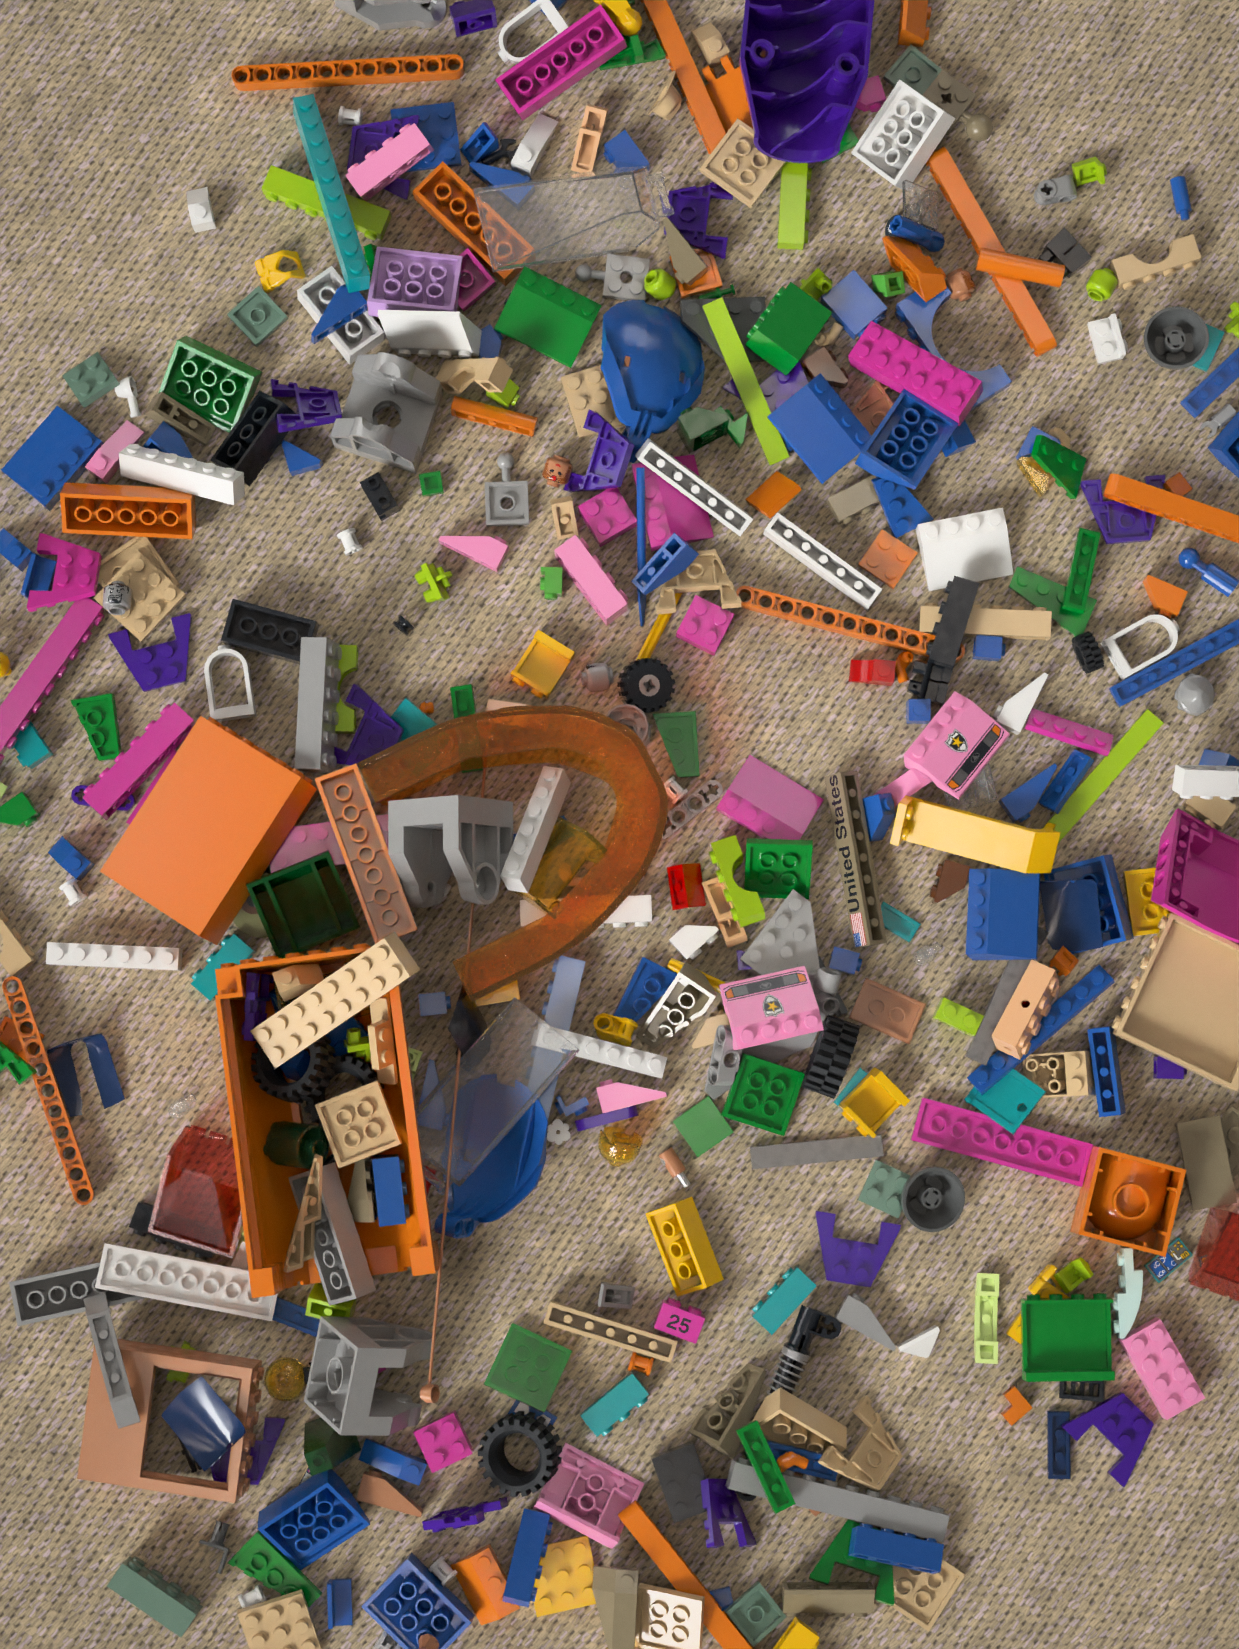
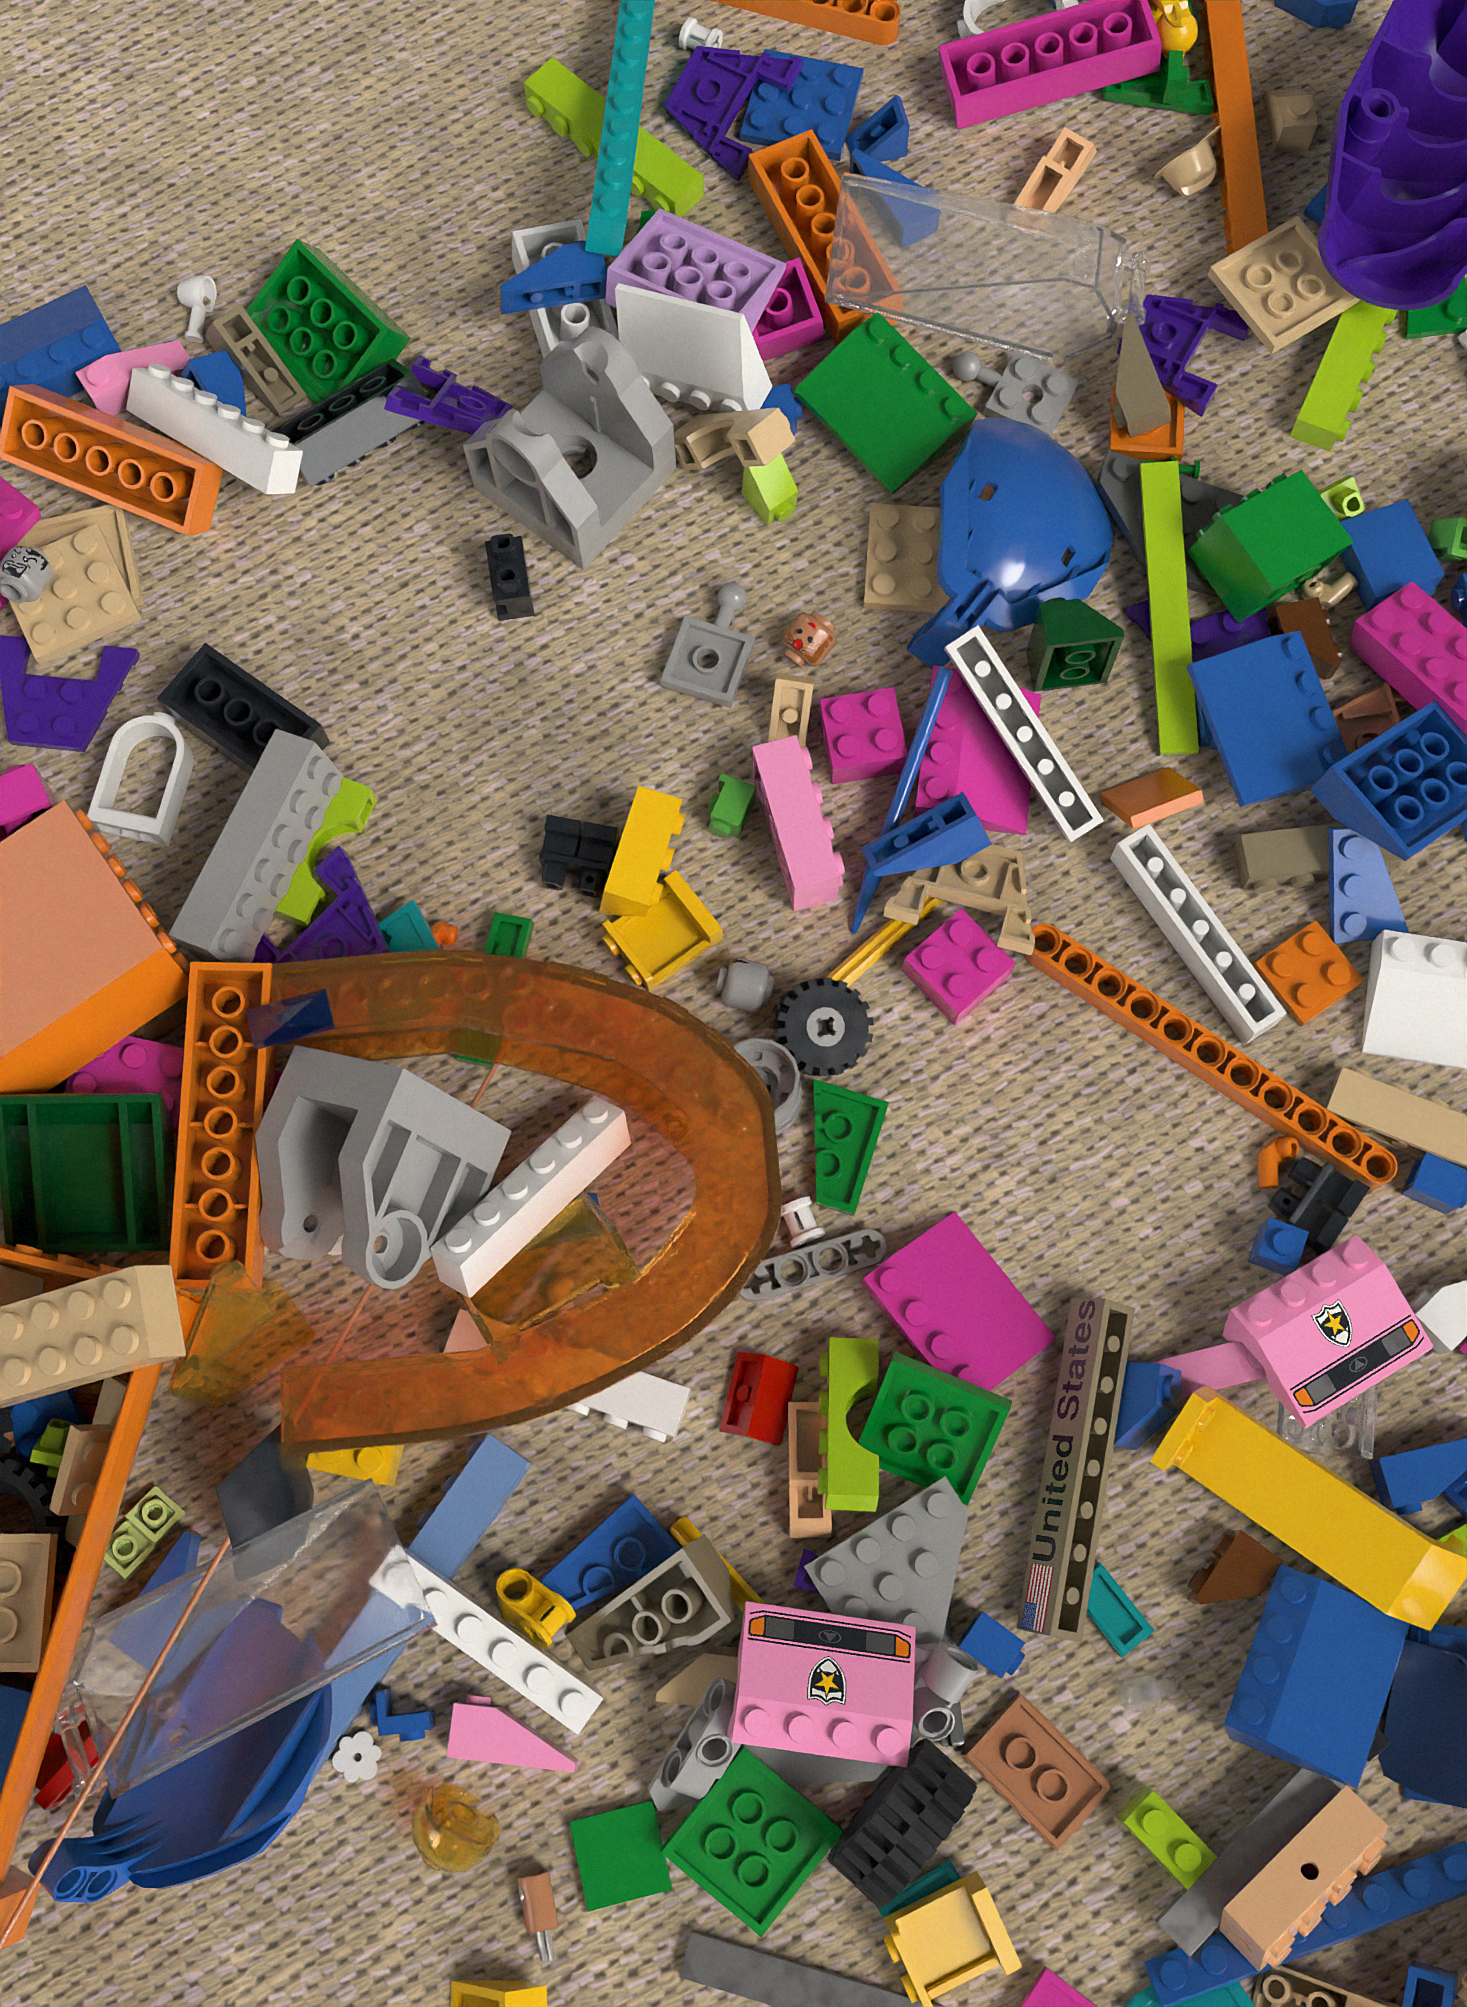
camera: 25 degrees right, 10 degrees down
(90, 379) = (149, 262): sand green plate -> none
(200, 210) = (421, 92): white slope -> none
(257, 316) = (440, 260): sand green plate -> none
(271, 275) = (487, 210): yellow piece -> none
(299, 460) = (408, 483): blue slope -> none
(349, 541) = (434, 630): white bush -> none
(379, 788) = (290, 1019): none -> clear blue slope
(389, 162) = (730, 100): bright pink brick -> none
(403, 625) = (462, 788): black bush -> none
(425, 948) = (237, 1337): none -> clear yellow windscreen
(431, 483) = (600, 590): green plate -> none
(434, 1003) = (236, 1432): brick -> none
(437, 580) = (545, 737): lime hips -> none
(471, 641) = (577, 852): none -> black hips
(481, 549) = (636, 714): bright pink slope -> none
(494, 416) = (741, 525): orange brick -> none
(503, 152) = (912, 160): black bar -> none
(517, 628) = (642, 854): none -> yellow slope
(533, 145) = (961, 161): white slope -> none
(606, 1118) = (438, 1766): dark purple beam -> none
(608, 459) = (895, 643): dark purple wing -> none
(624, 152) = (1101, 206): blue slope -> none
(659, 284) = (1082, 419): lime head -> none
(691, 938) = (732, 1495): white slope -> none
(728, 94) = (1295, 185): orange tile -> none
(736, 429) = (1127, 676): green slope -> none
(872, 672) = (1220, 1150): red arch -> none
(953, 622) = (1395, 1113): black brick -> none
(1063, 961) = (1400, 1809): orange tile -> none

